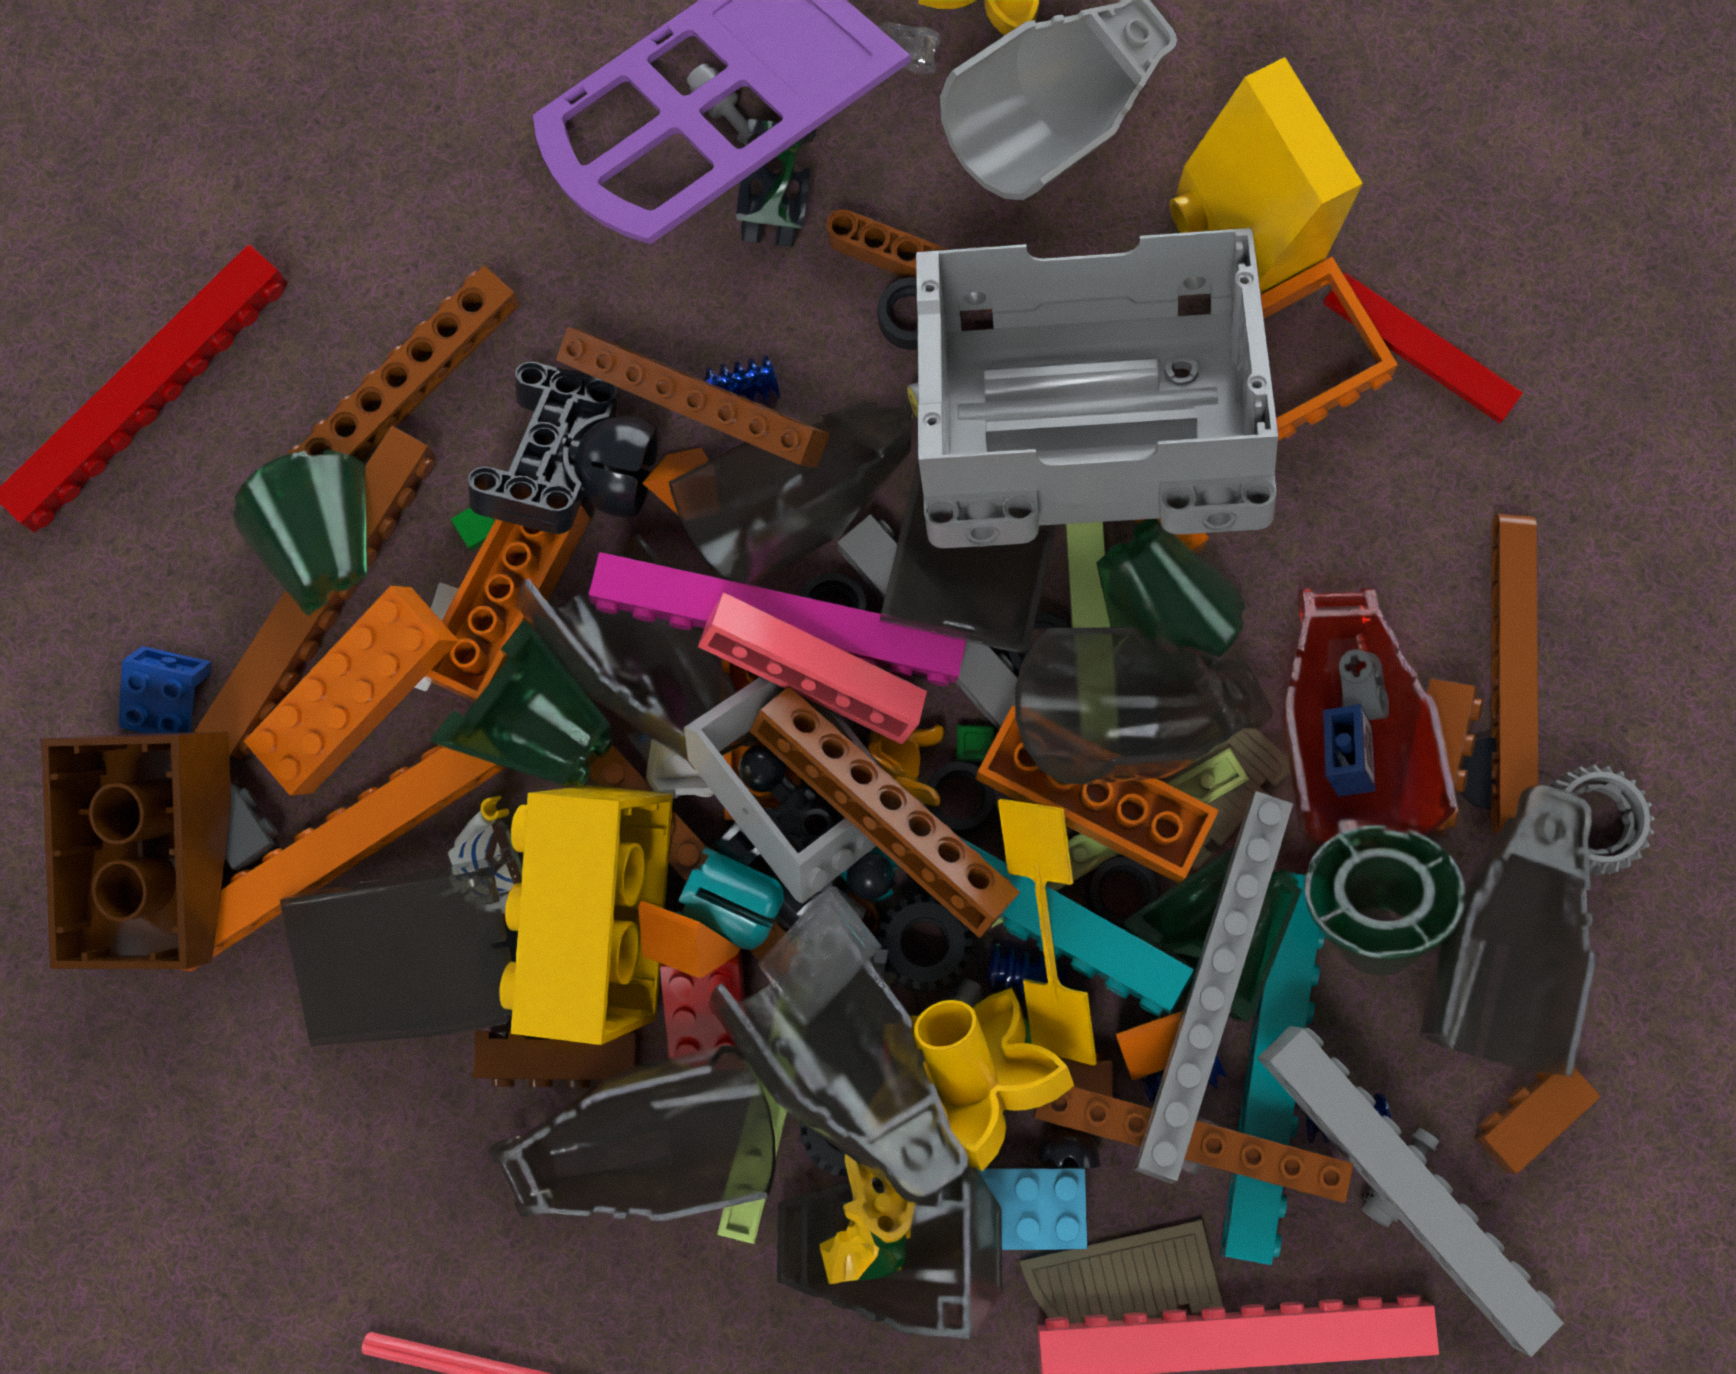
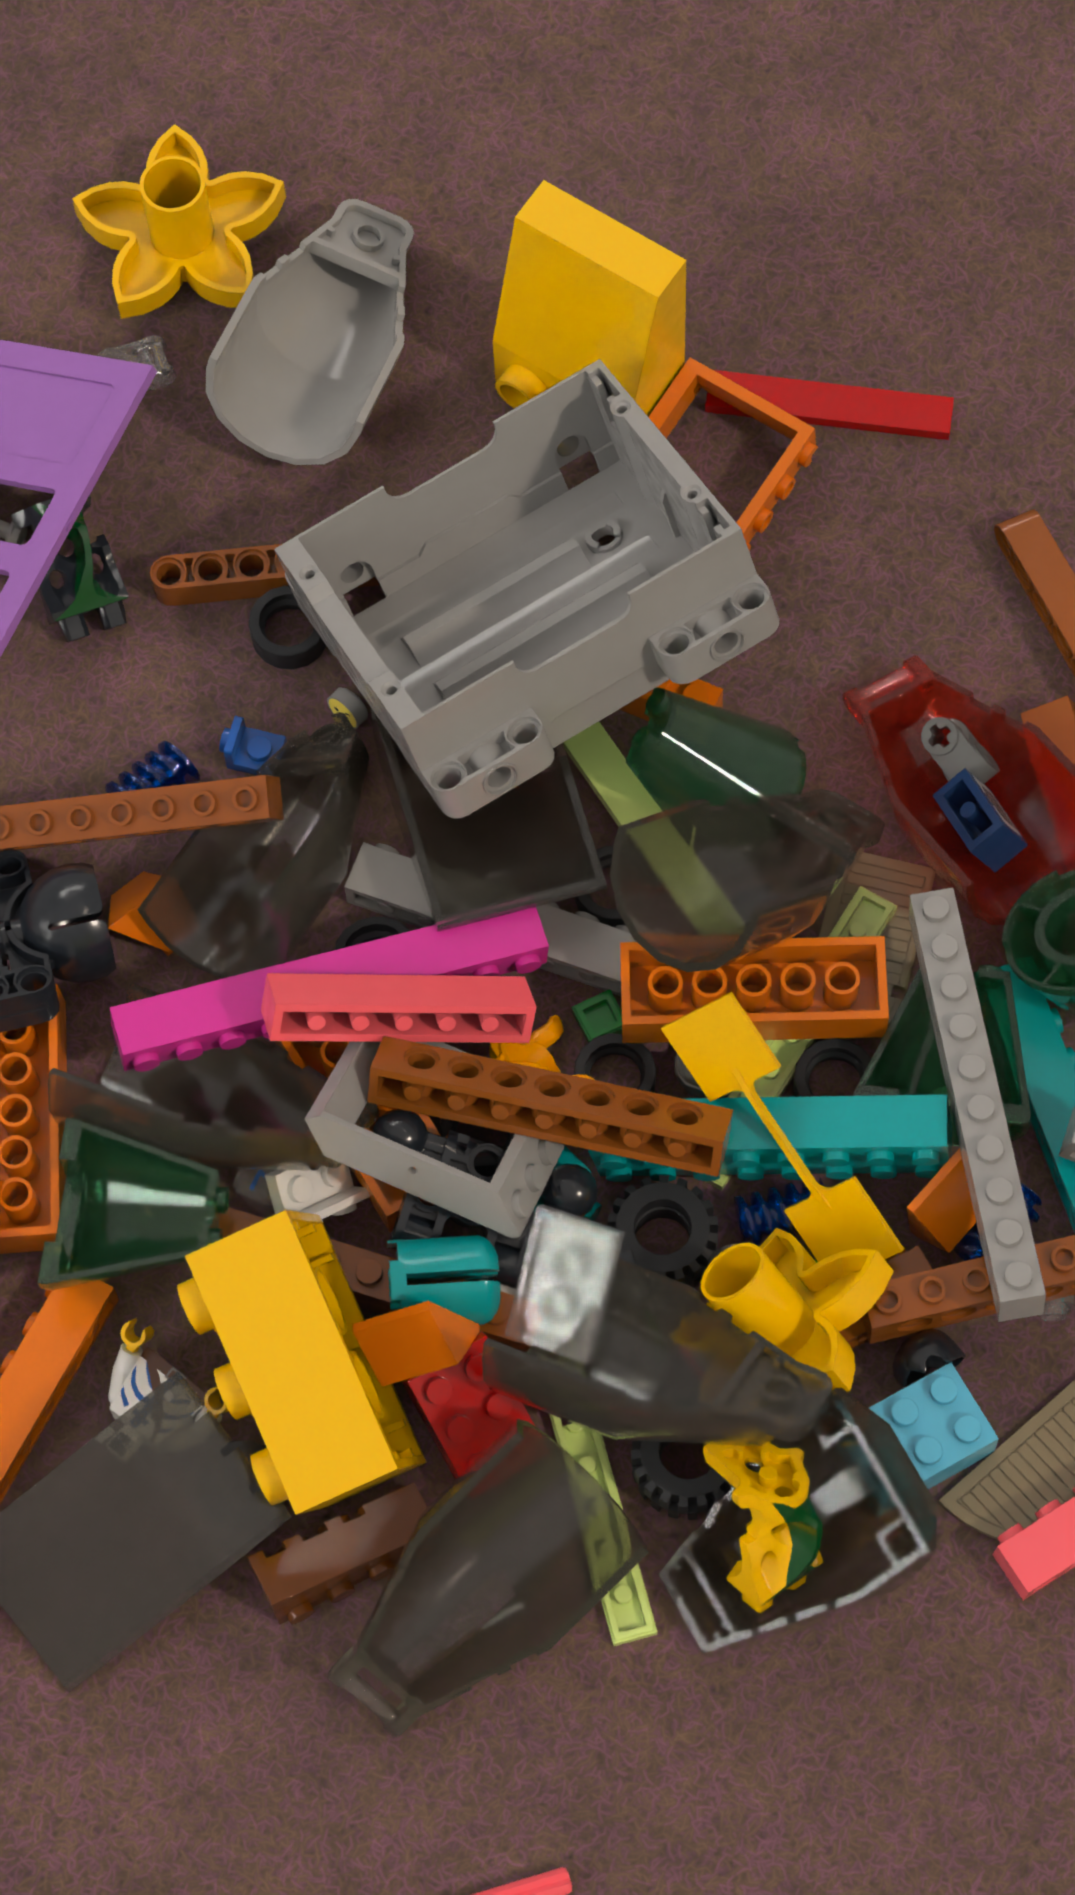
camera: 30 degrees left, 10 degrees down
(829, 392) = (248, 748): none -> blue bracket

